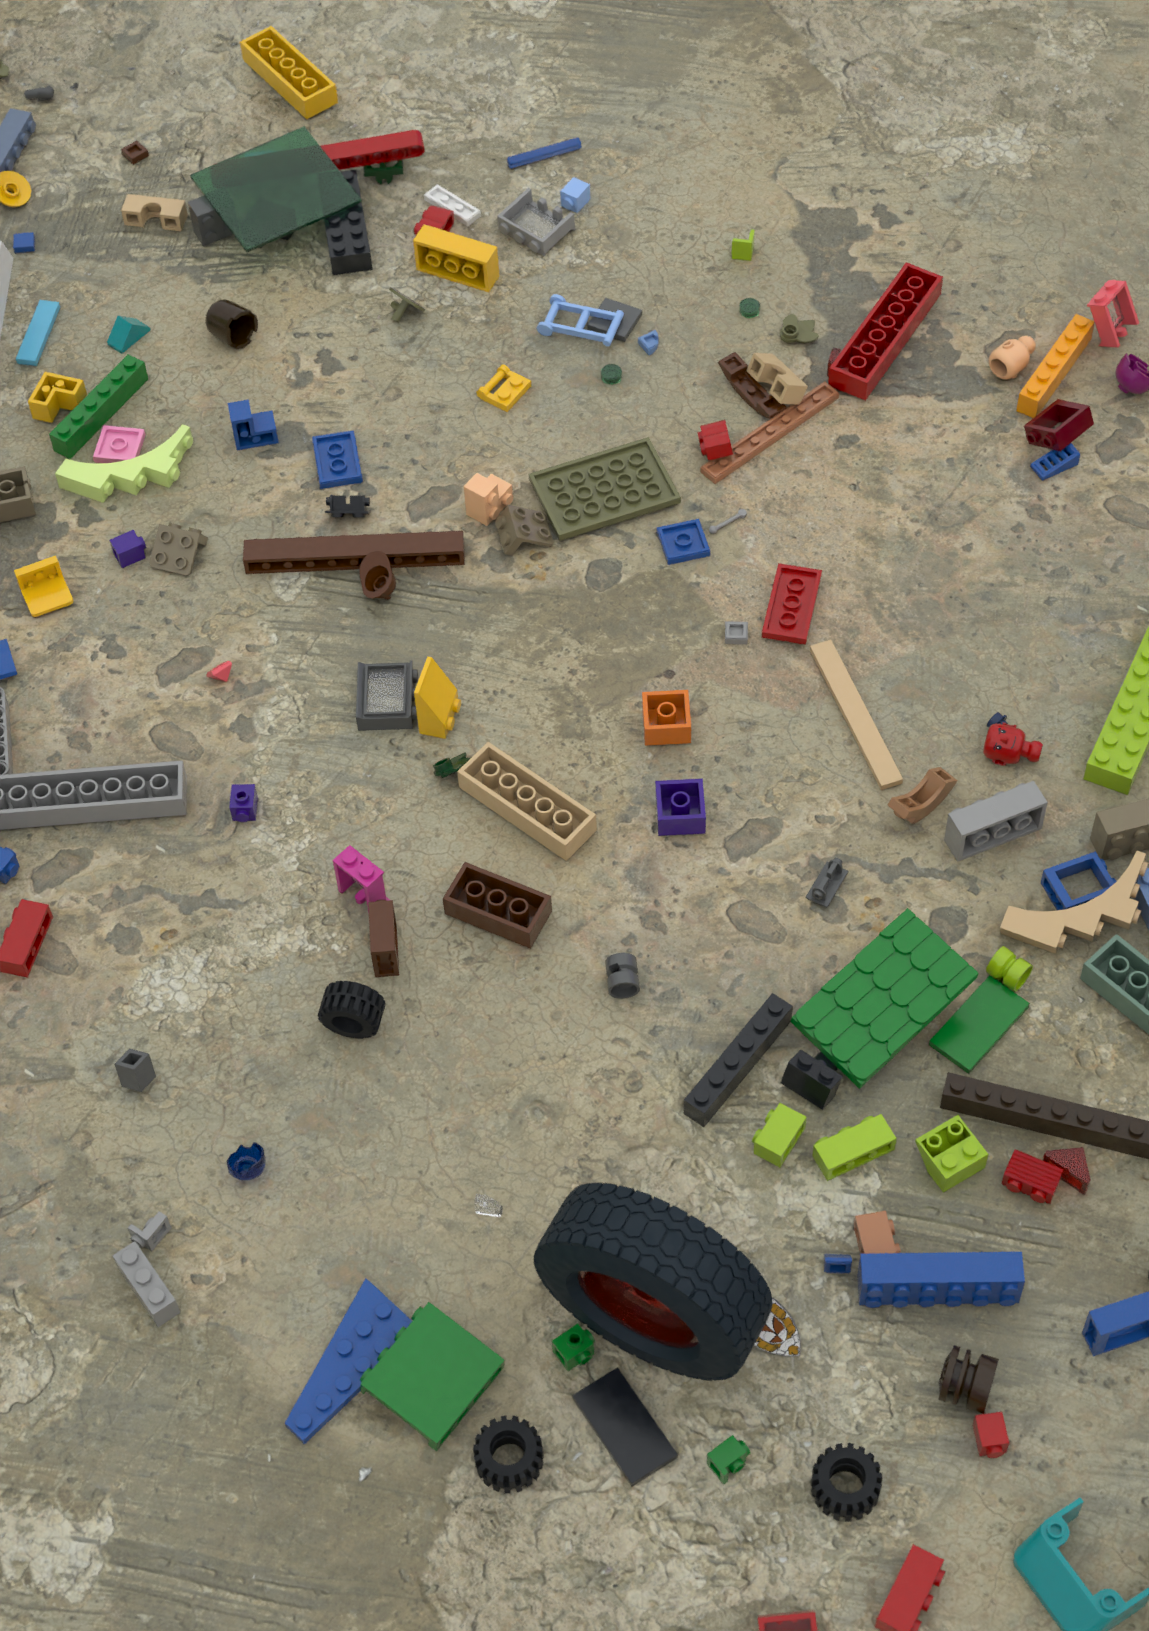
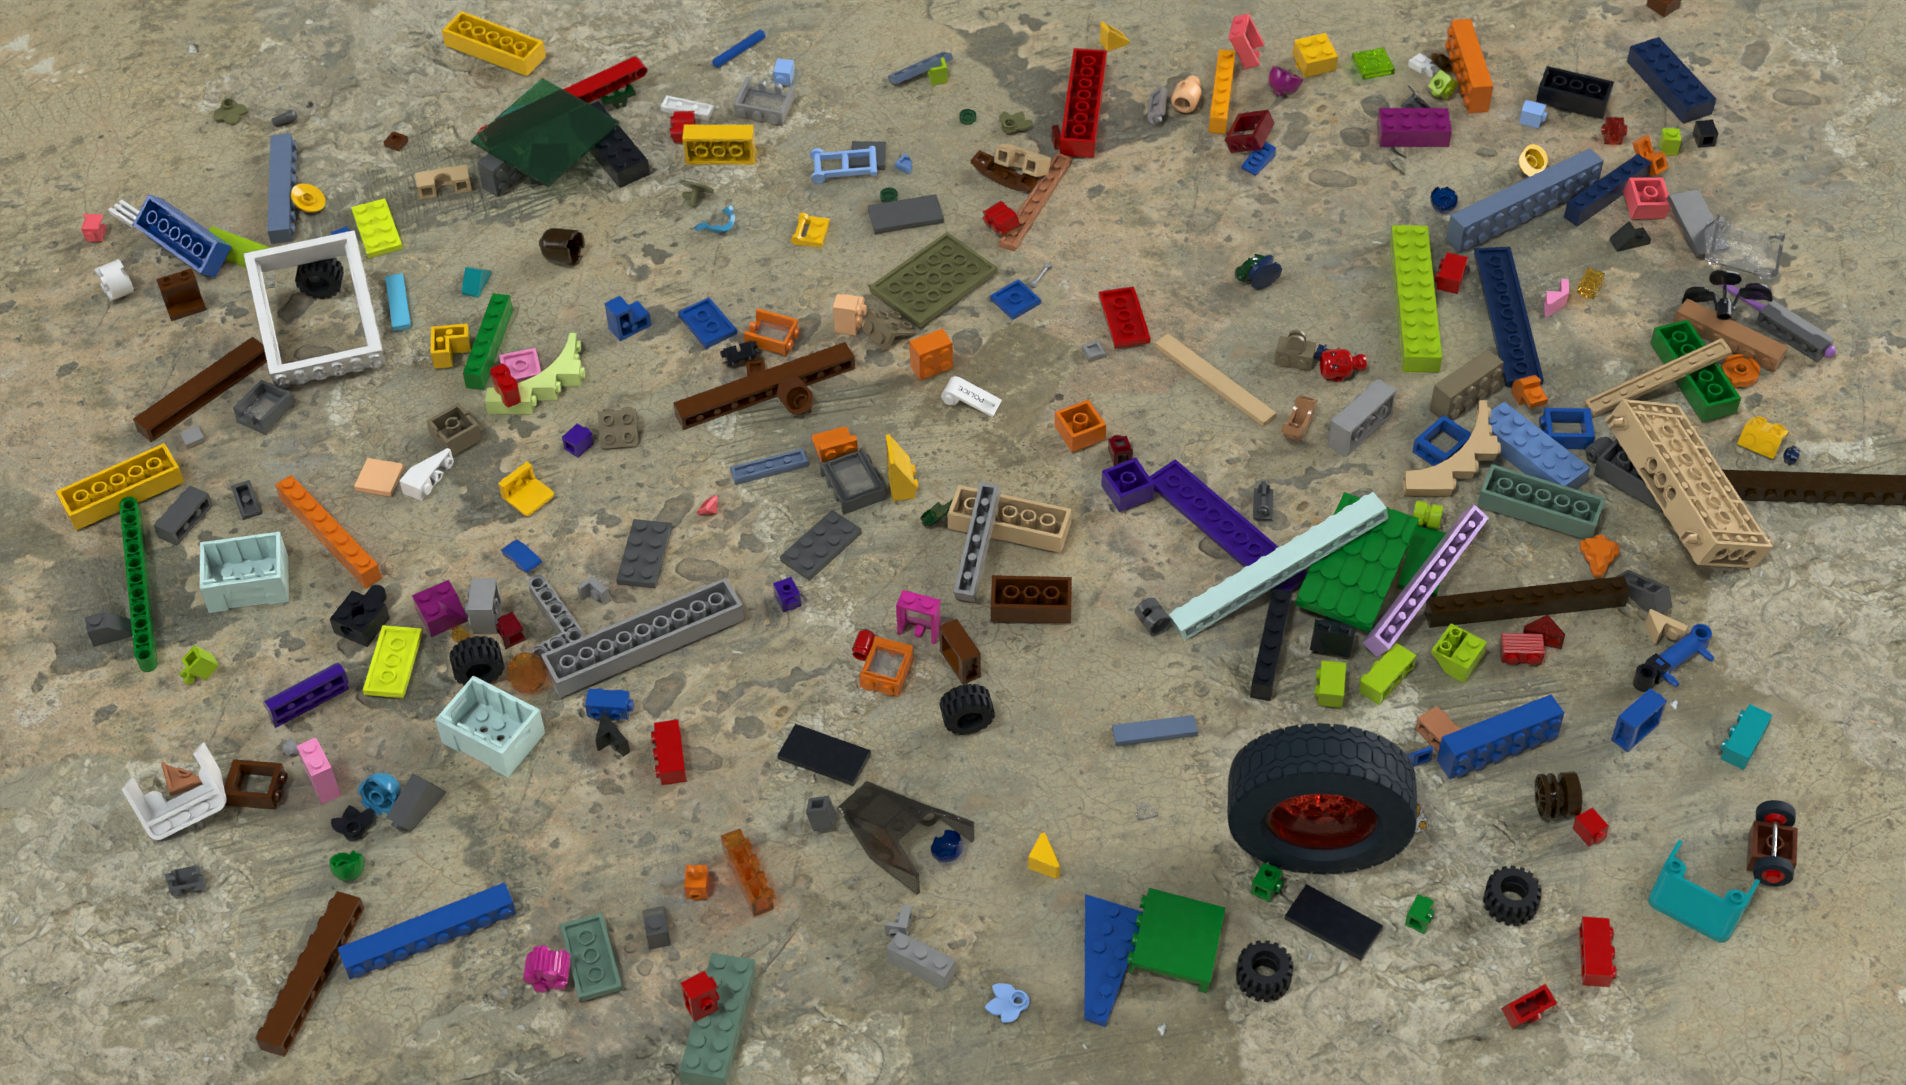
camera: 25 degrees left, 5 degrees down
(22, 1108) = (747, 872): none -> clear orange brick
(47, 721) = (595, 589): none -> light grey bracket
(62, 243) = (376, 228): none -> neon yellow plate
(80, 462) = (505, 385): none -> red brick
(126, 701) = (644, 553): none -> dark grey plate
(182, 1002) = (824, 754): none -> black tile
(201, 1096) = (884, 817): none -> clear smoke windscreen
(209, 1371) = (1004, 1002): none -> light blue plate
(292, 891) = (863, 644): none -> red brick
(301, 926) = (886, 666): none -> orange window
(309, 647) = (769, 466): none -> sand blue tile
(313, 757) = (820, 545): none -> dark grey plate
(343, 1215) = (1043, 858): none -> yellow slope
(358, 527) = (755, 366): none -> reddish brown tile
(389, 645) = (834, 444): none -> orange bracket
(396, 494) = (773, 332): none -> orange window
(415, 356) = (719, 229): none -> dark azure helmet
(468, 817) = (977, 542): none -> light grey brick
(547, 576) = (931, 354): none -> orange brick
(552, 1112) = (1154, 730): none -> sand blue tile
(568, 639) = (962, 390): none -> white door
(617, 401) = (905, 214): none -> dark grey tile
(698, 757) = (1118, 446): none -> dark red window
(727, 233) = (919, 67): none -> sand blue tile
(768, 900) = (1217, 518): none -> dark purple plate
(789, 969) = (1278, 566): none -> light aqua brick
(958, 1049) = (1425, 581): none -> lavender brick
(964, 712) = (1295, 351): none -> dark tan brick
(965, 262) = (1111, 37): none -> yellow slope
(970, 360) = (1157, 105): none -> light grey hinge
(975, 600) = (1259, 271): none -> dark blue piece

